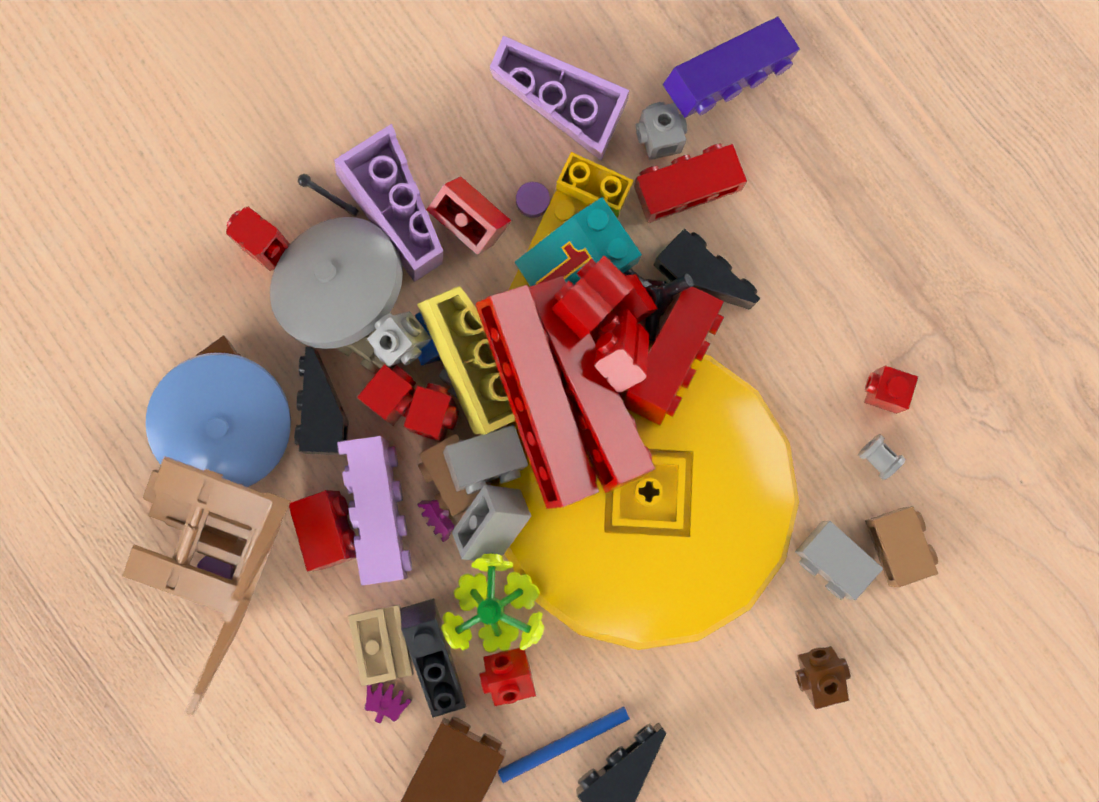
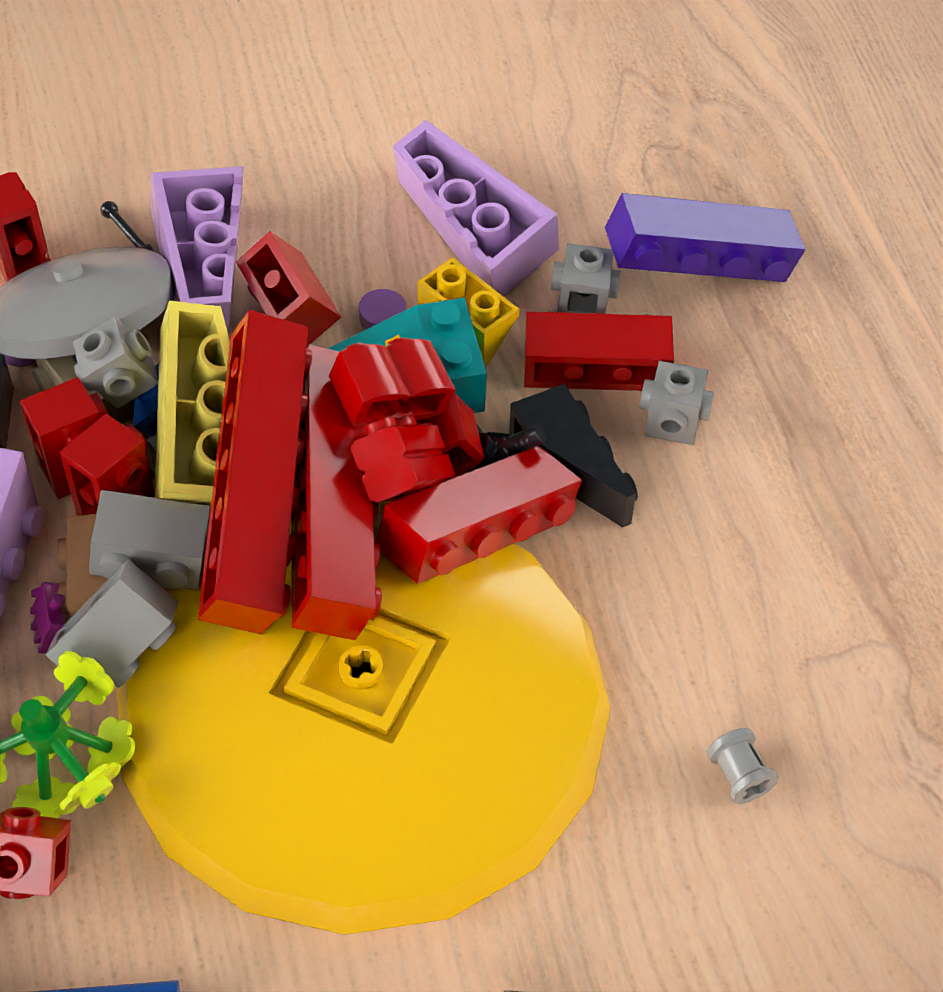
camera: 25 degrees right, 30 degrees down
(753, 218) = (676, 402): none -> light grey brick
(838, 561) = (615, 884): light grey brick -> none
(890, 389) = (787, 676): red brick -> none
(902, 546) = (729, 901): medium nougat brick -> none

